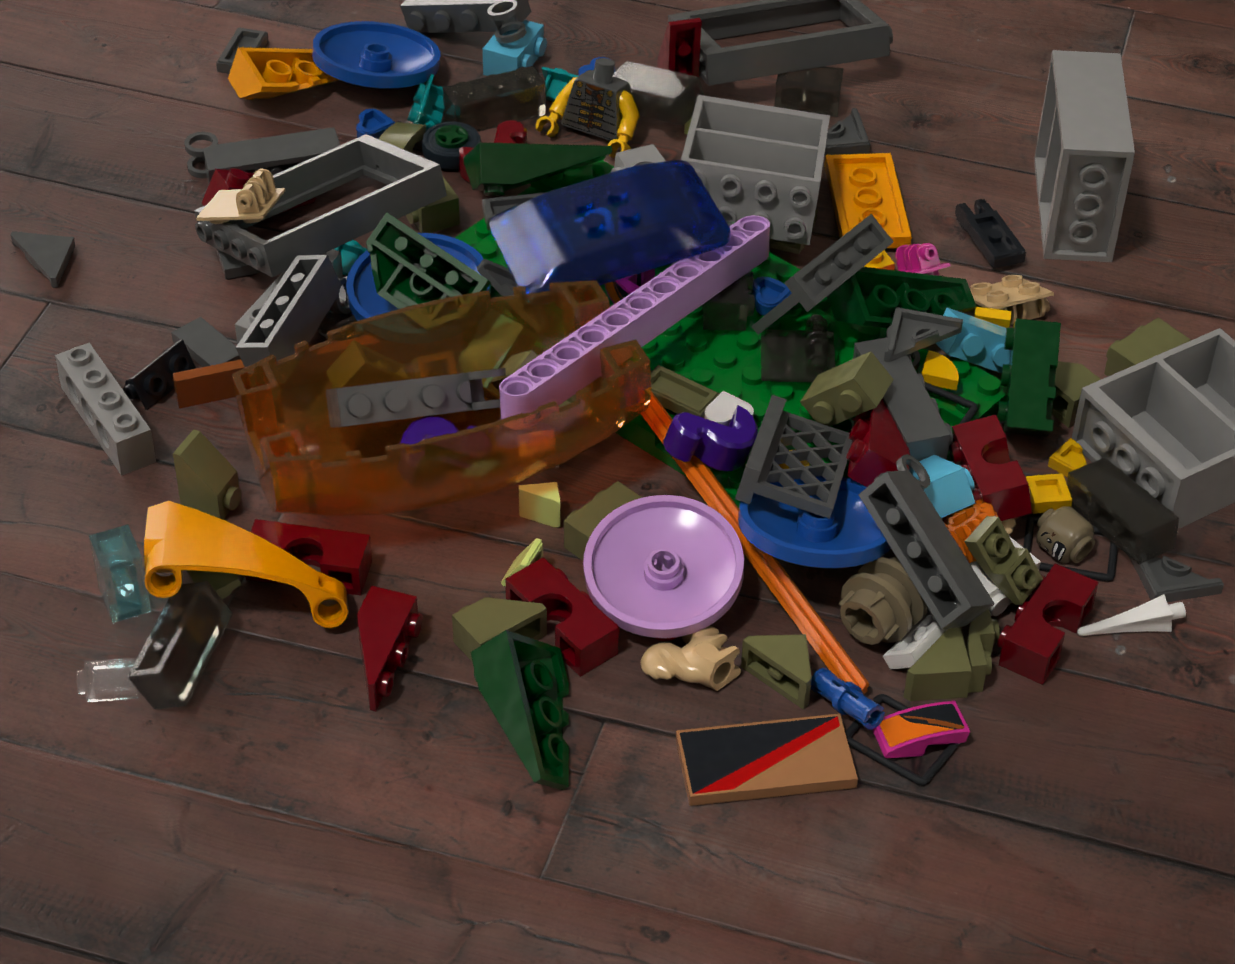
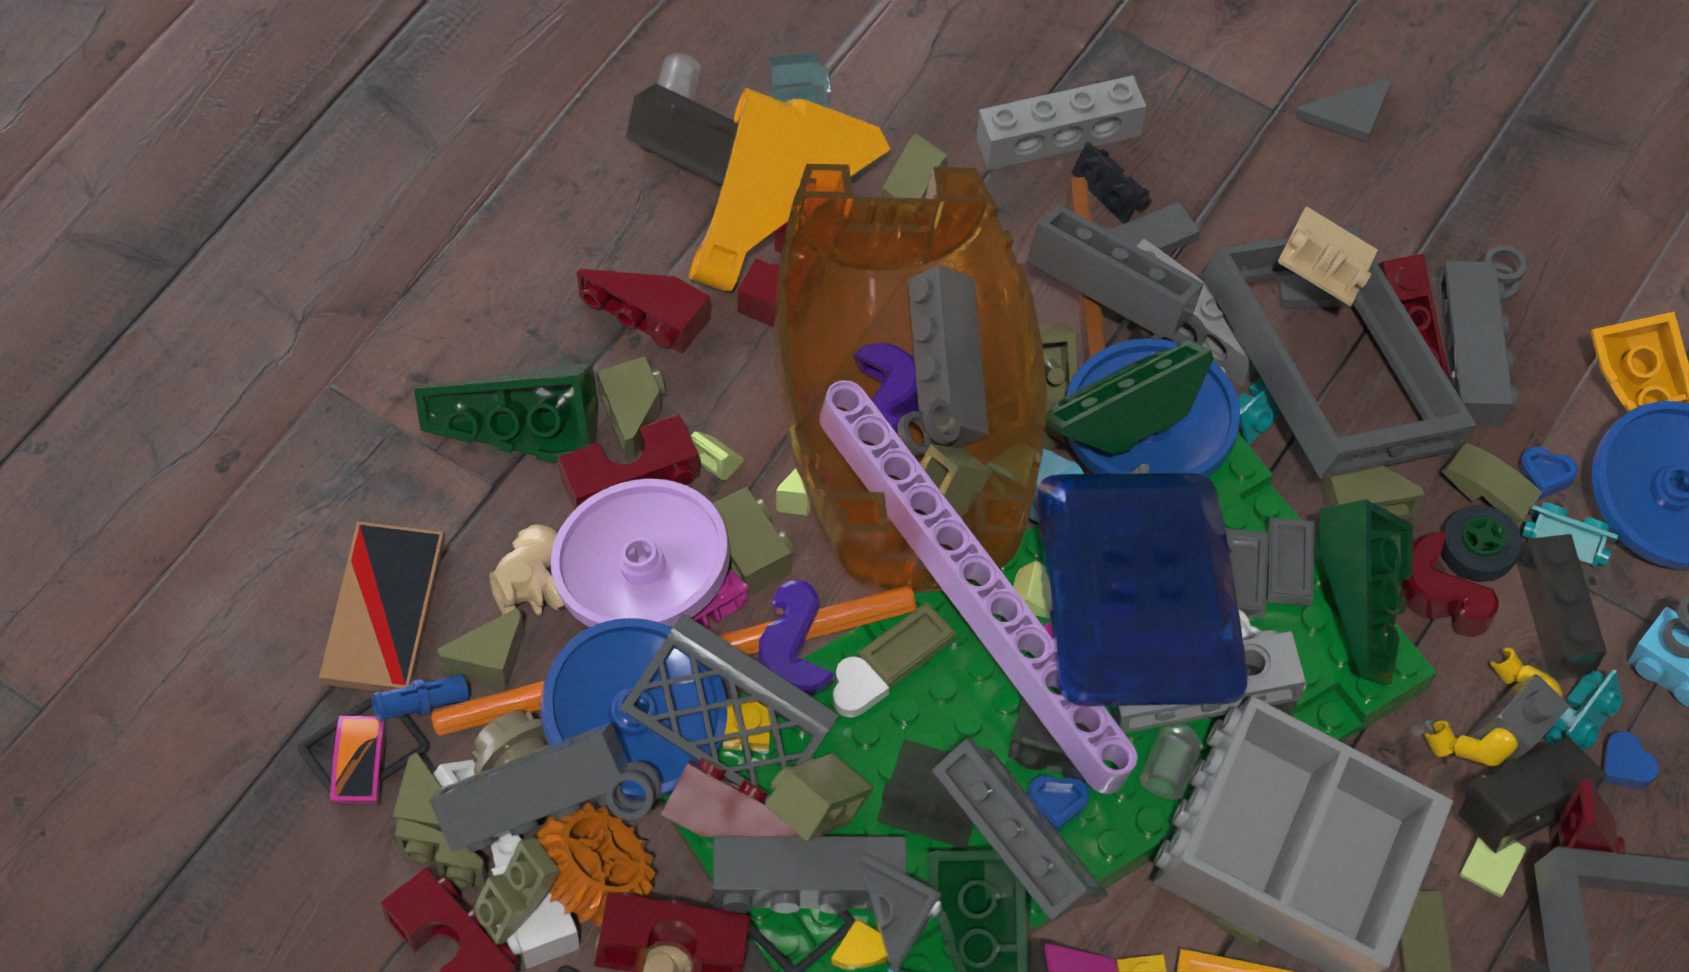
camera: 105 degrees right, 15 degrees up
(949, 485) = (657, 862): medium azure brick -> none

